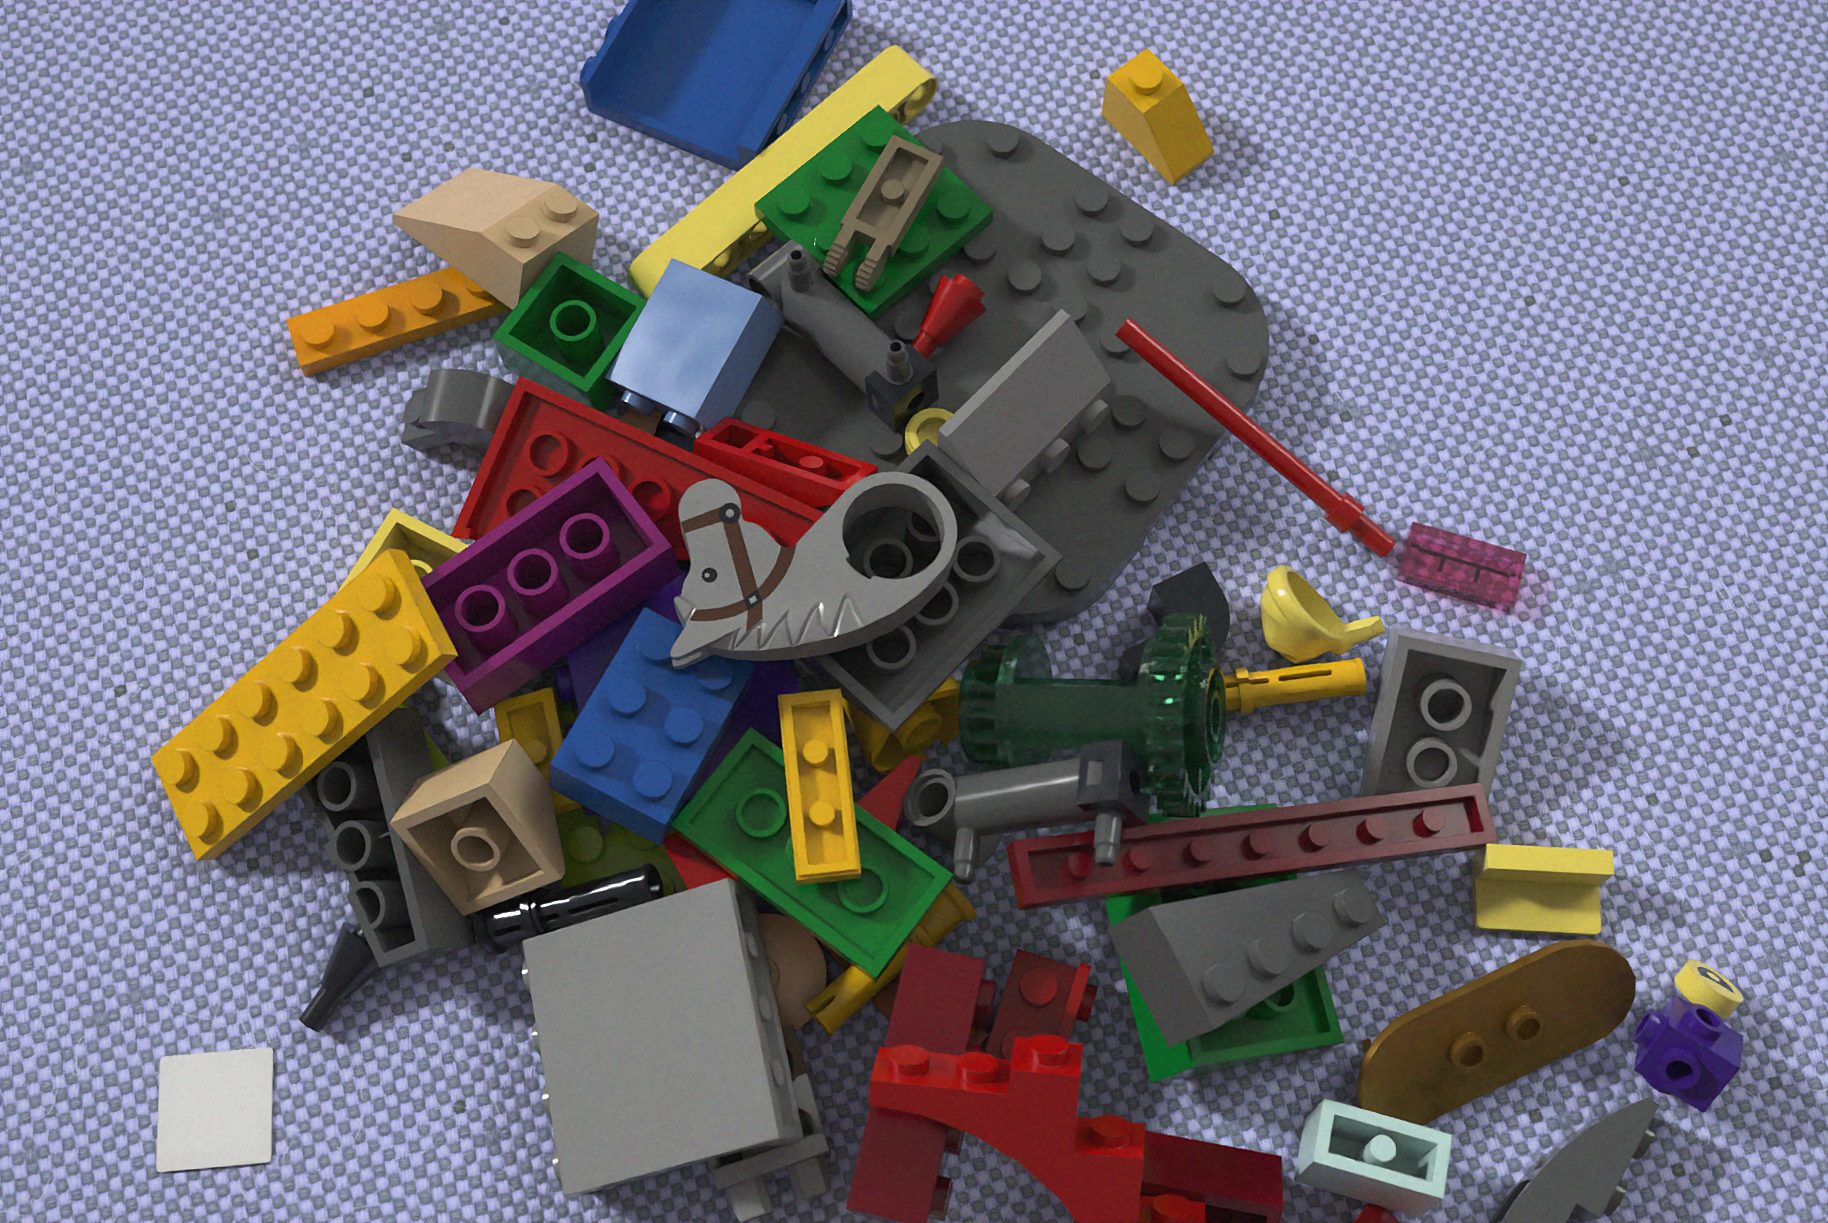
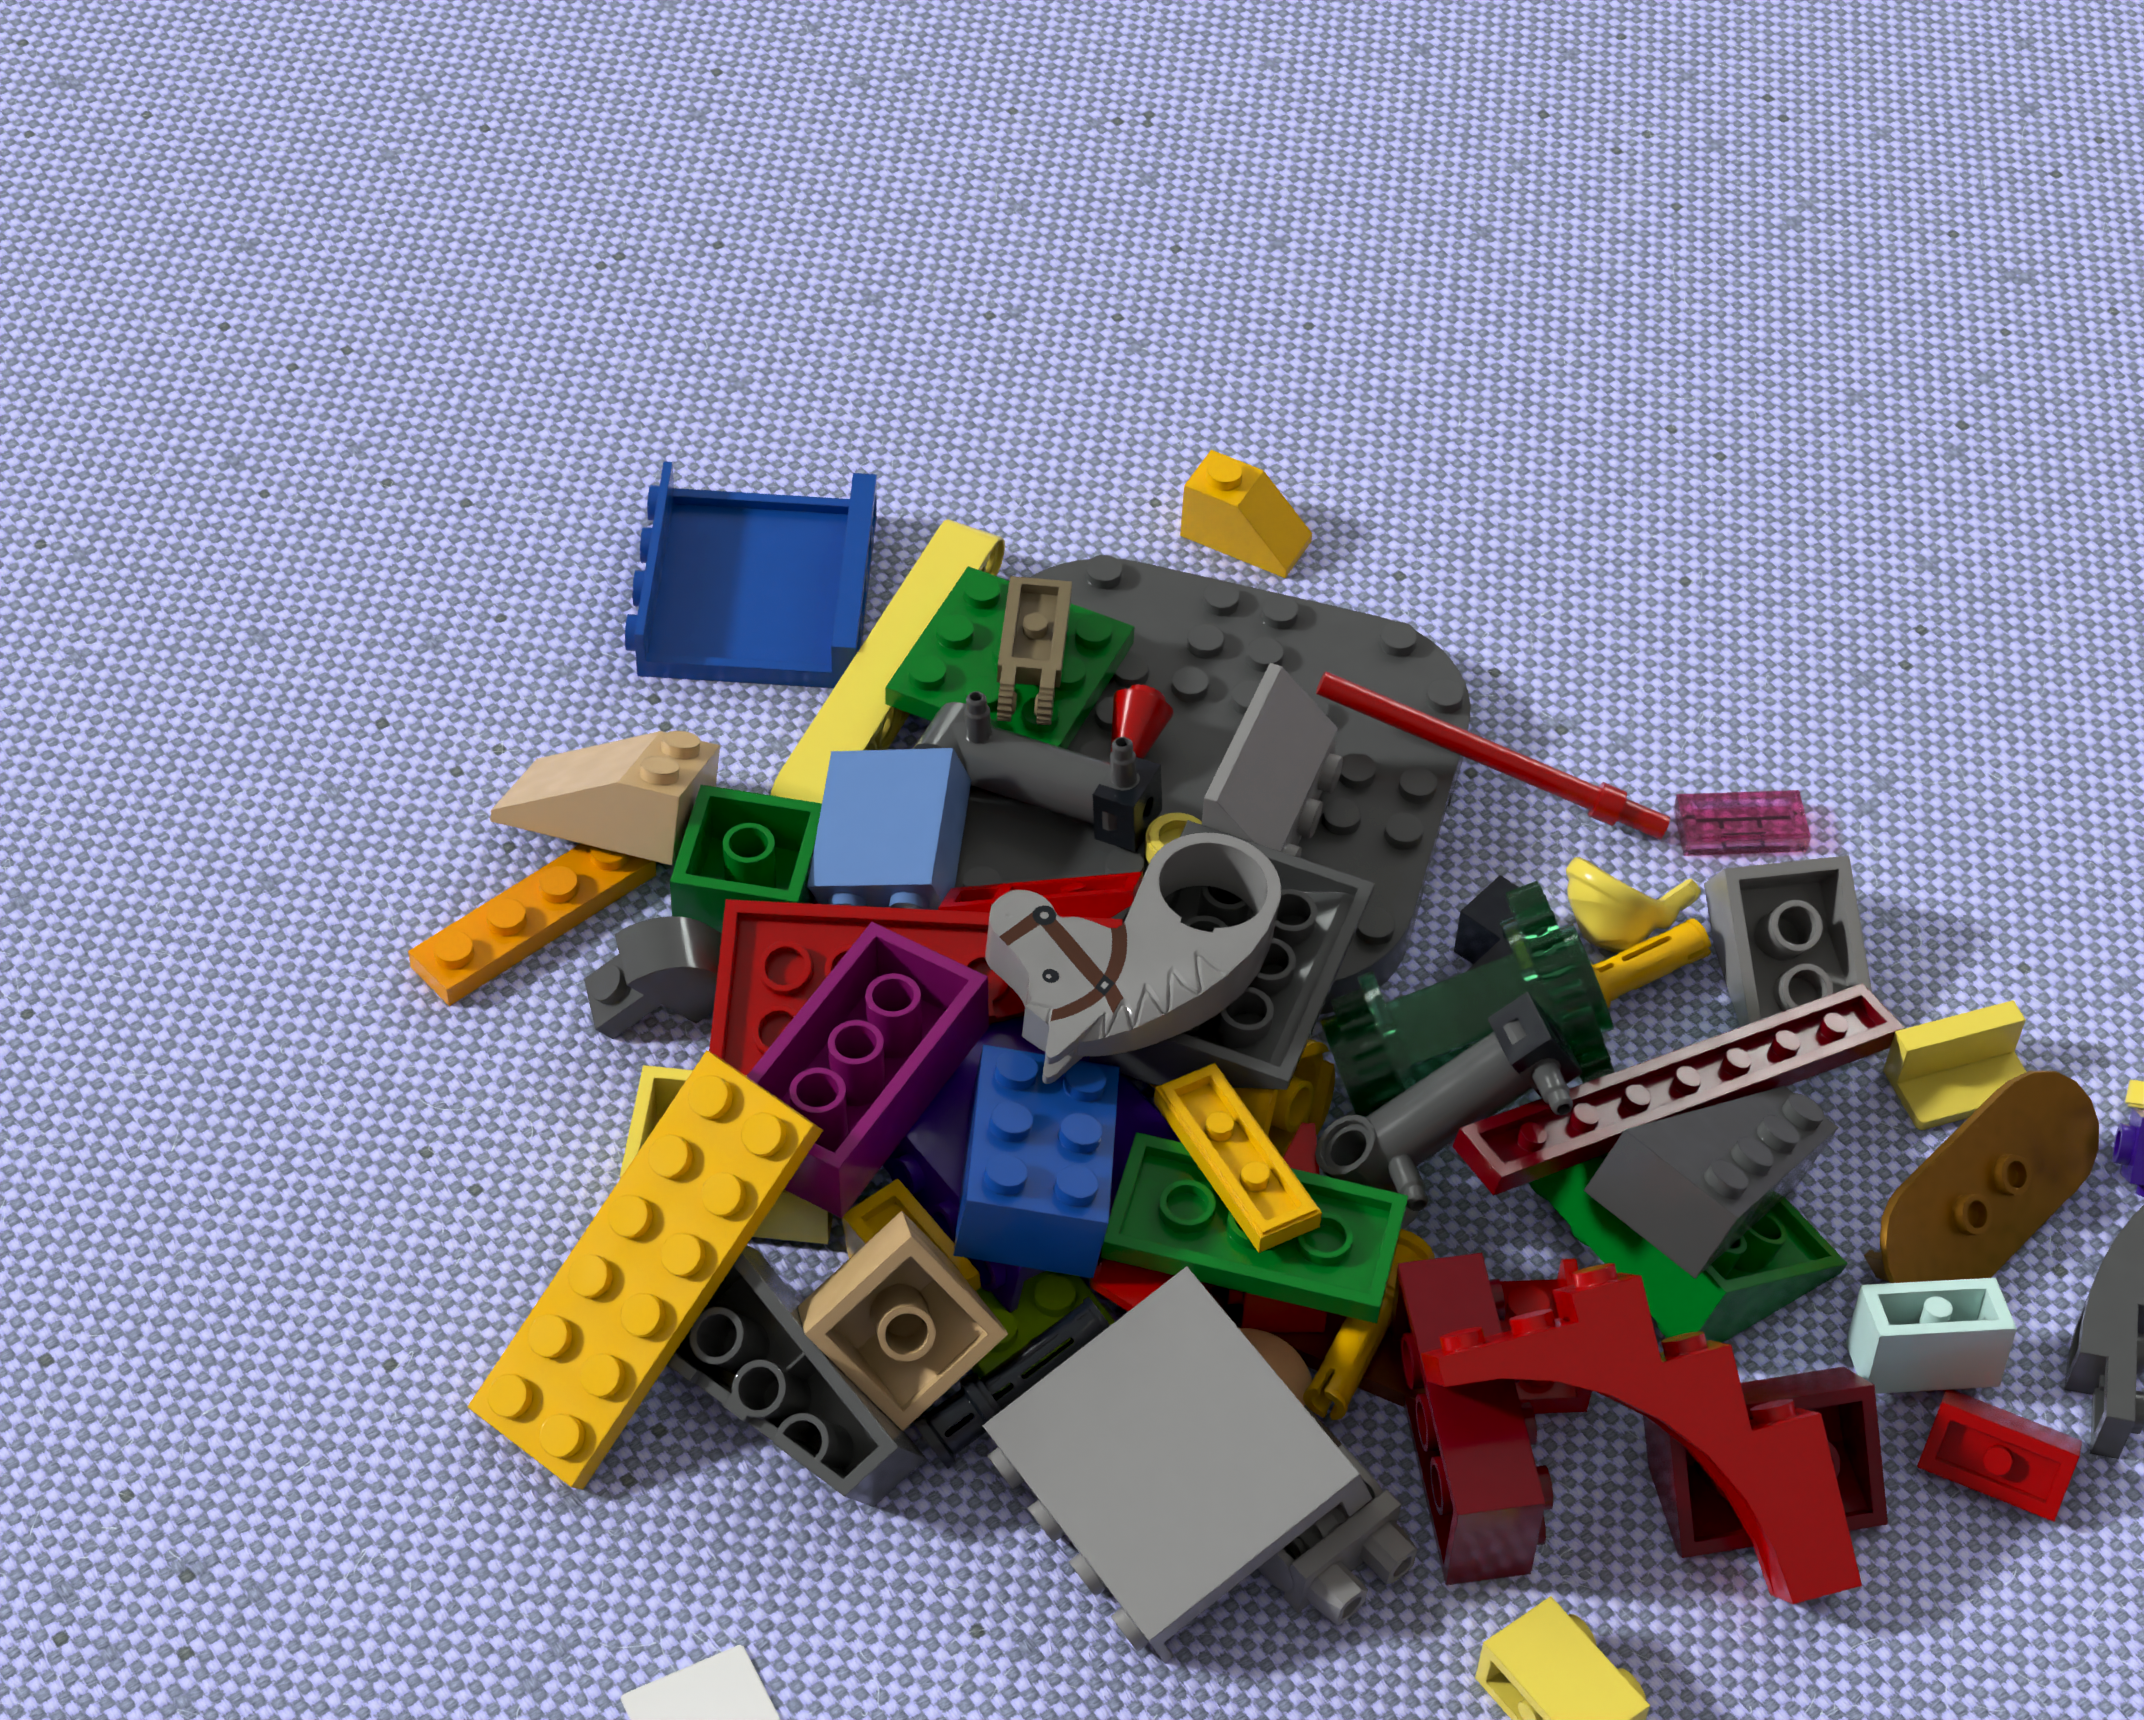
camera: 25 degrees left, 20 degrees down
(346, 971) = (799, 1518): black cone -> none

